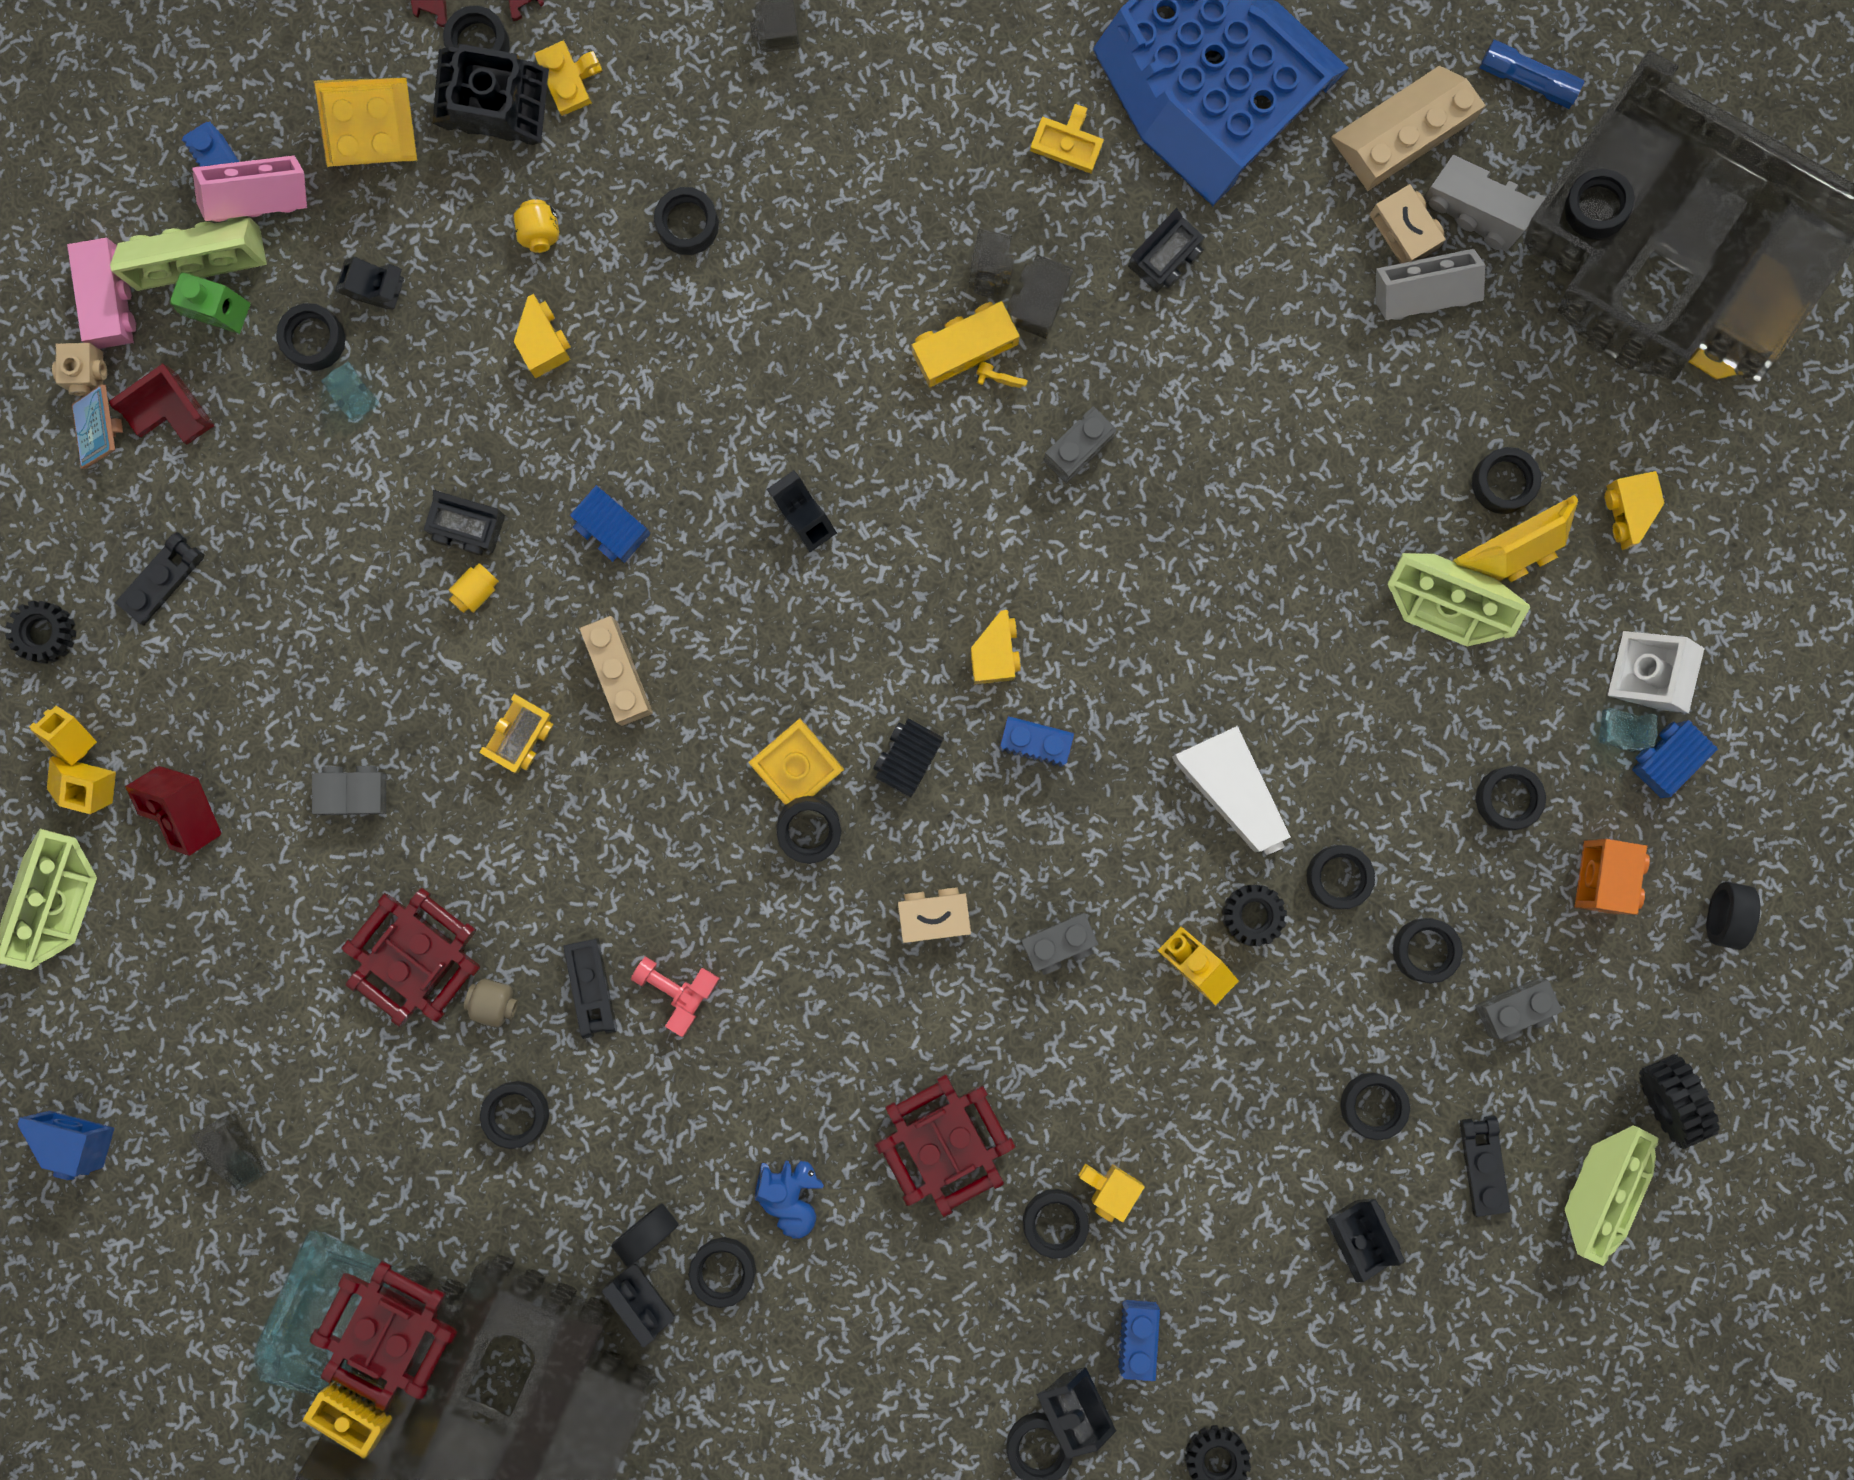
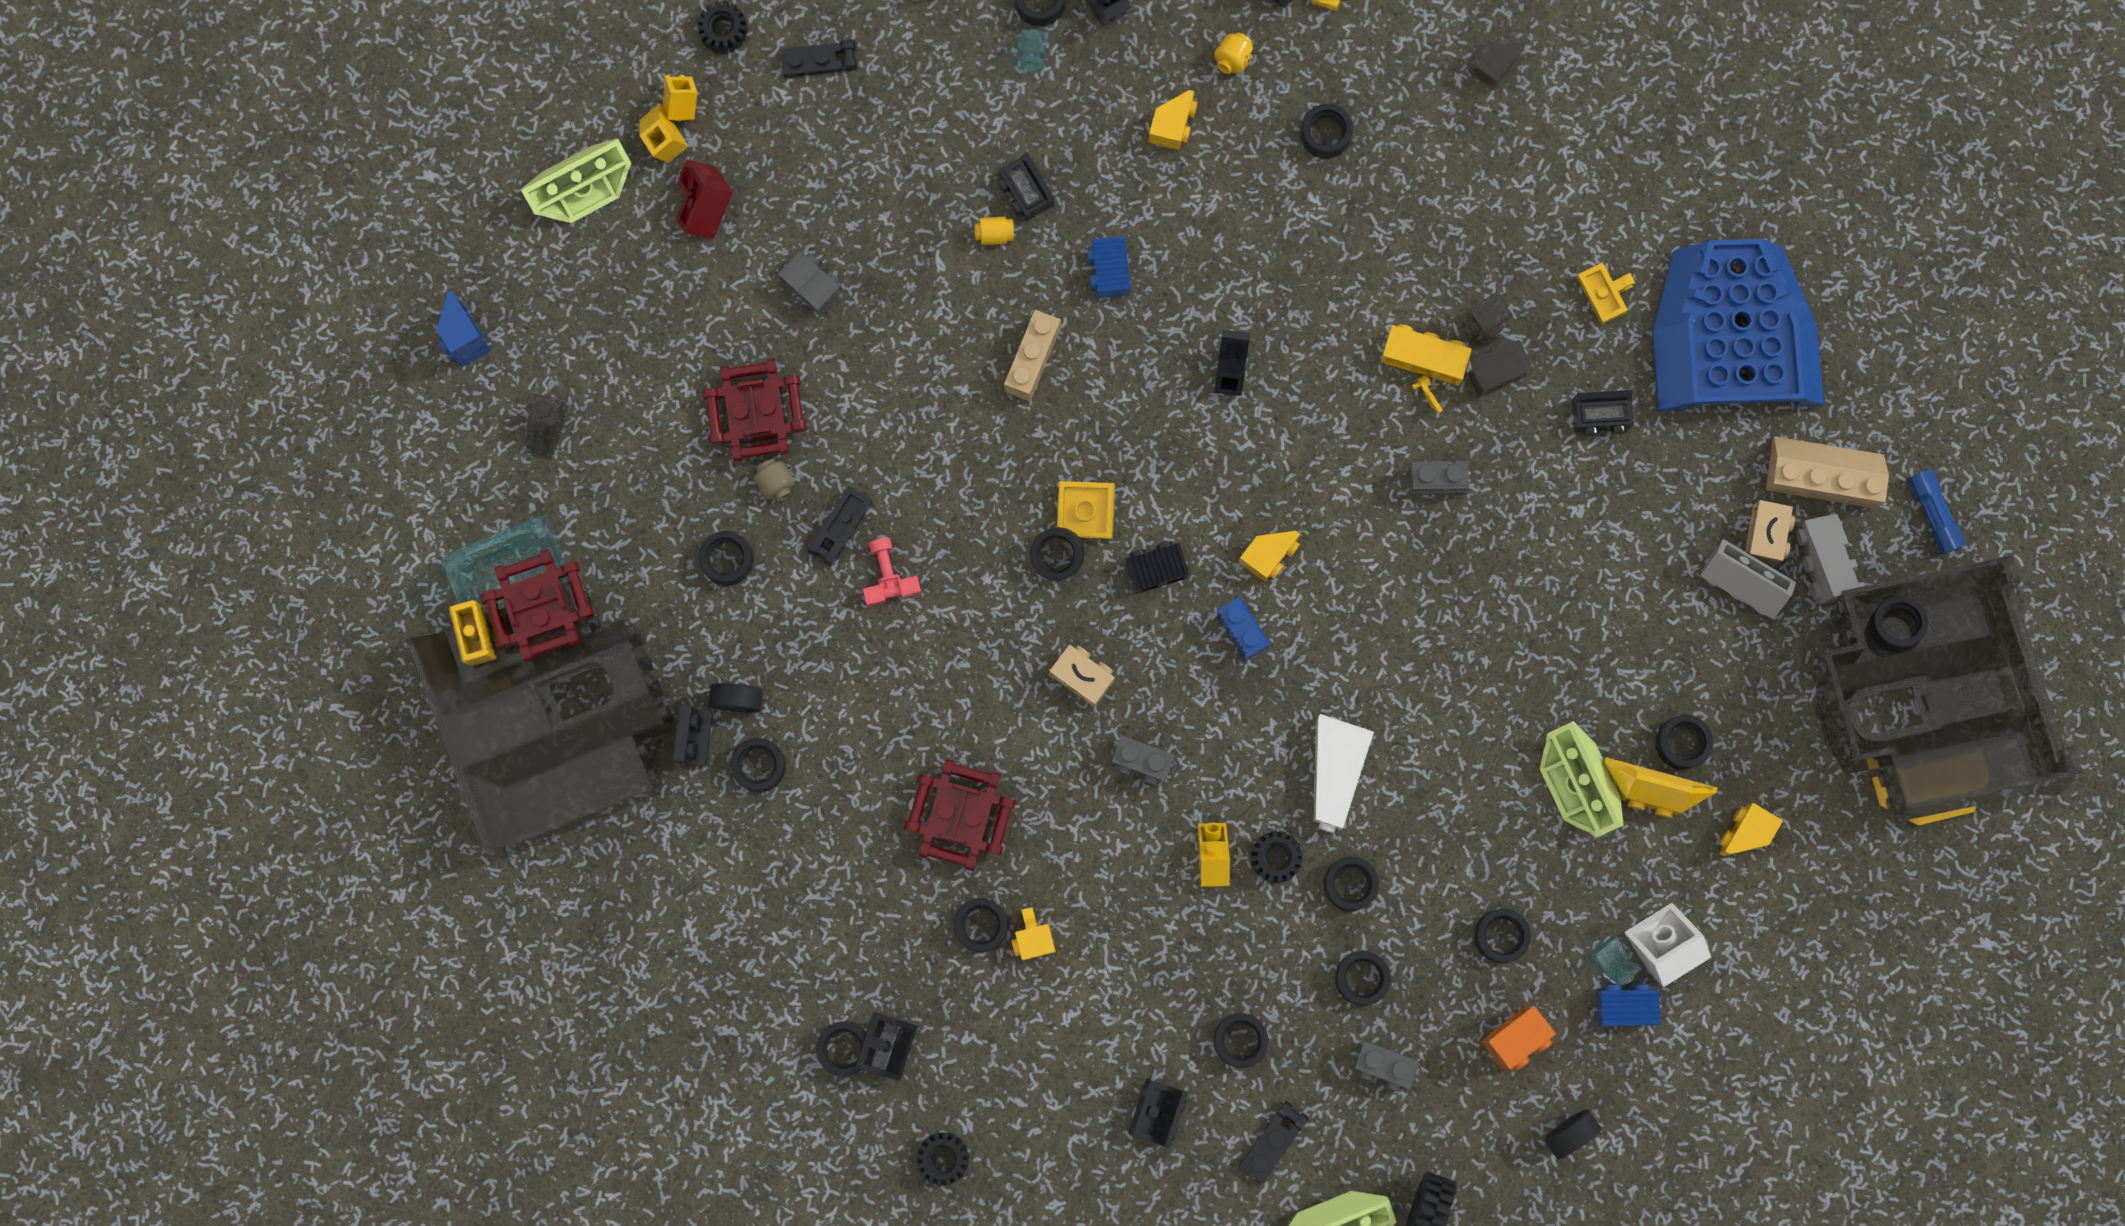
camera: 45 degrees right, 5 degrees down
(518, 734) = (939, 340): yellow window -> none
(780, 1197) = (833, 753): blue animal -> none
(1139, 1340) = (964, 1041): blue brick -> none

